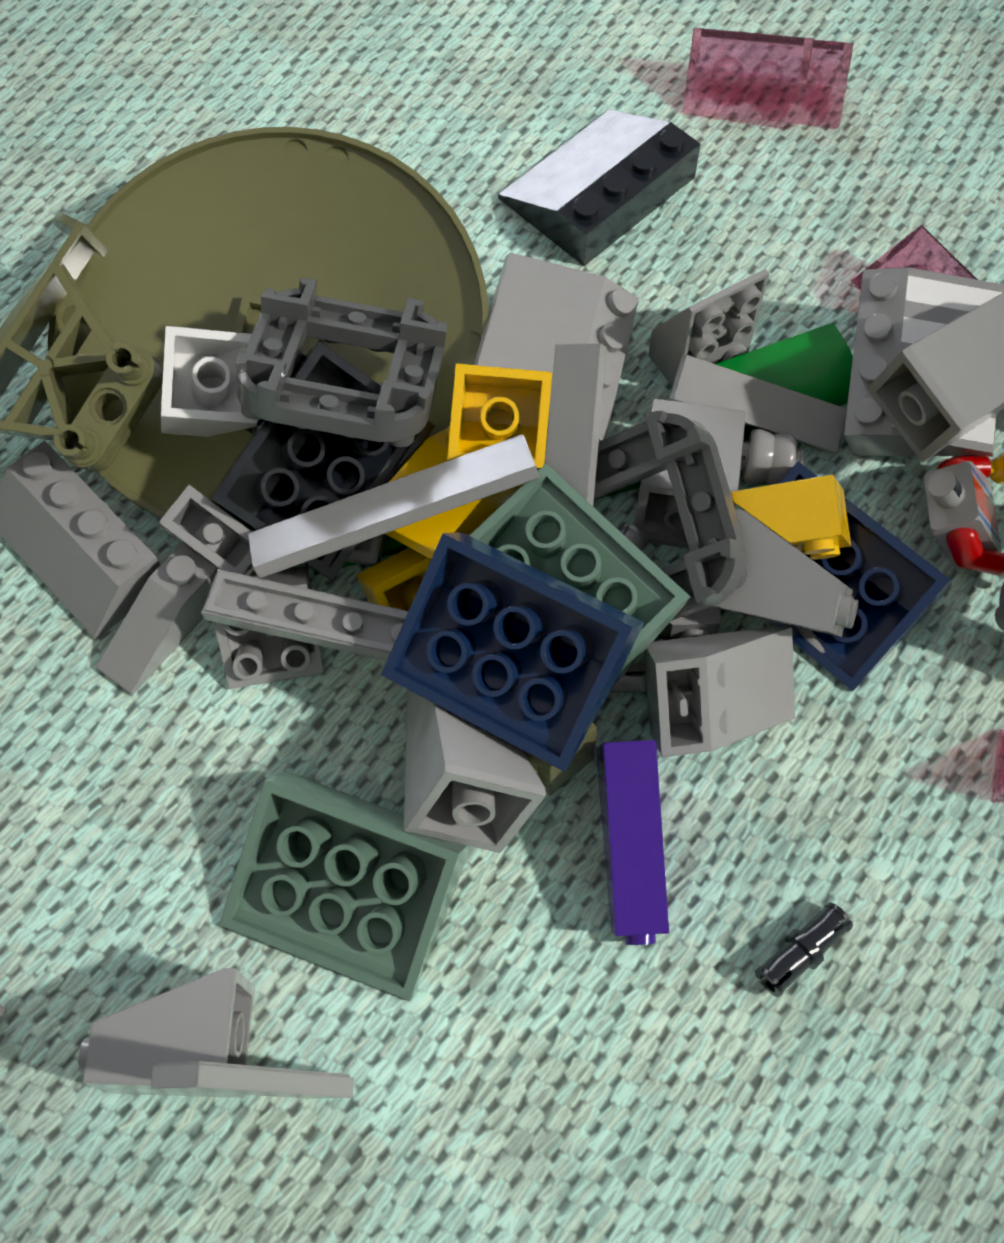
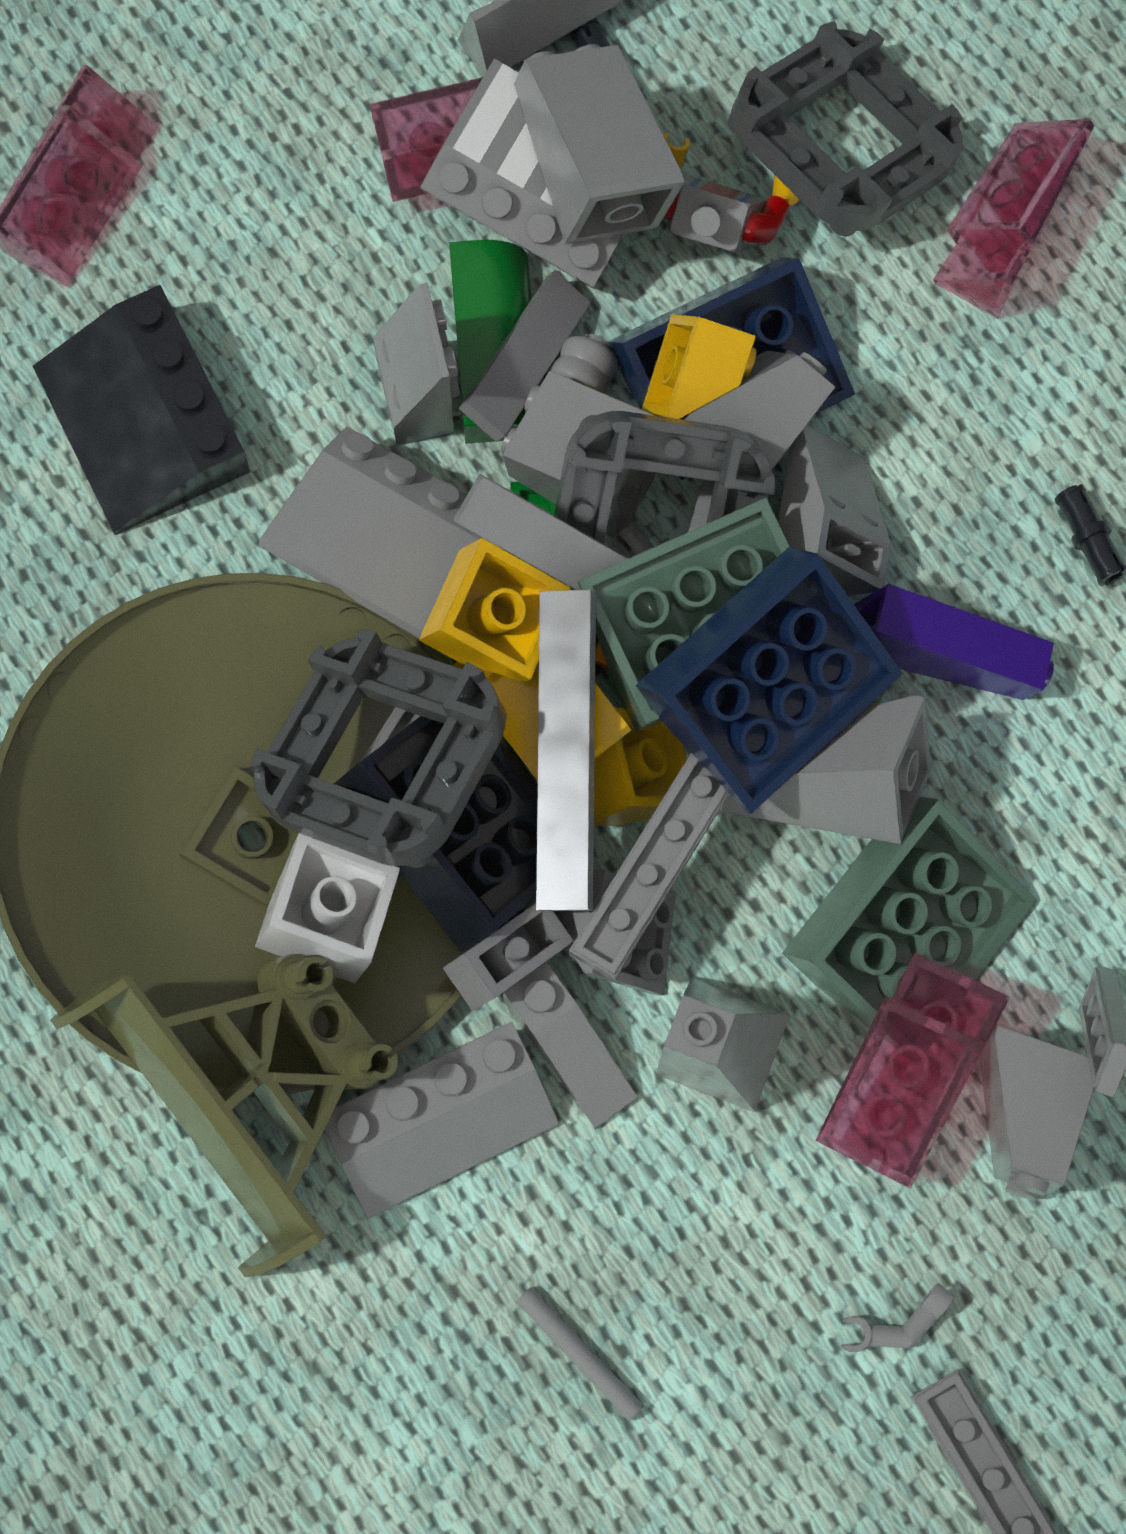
camera: 75 degrees left, 10 degrees up
(174, 721) = (722, 1044): none -> light grey slope
(196, 912) = (911, 1069): none -> clear pink slope

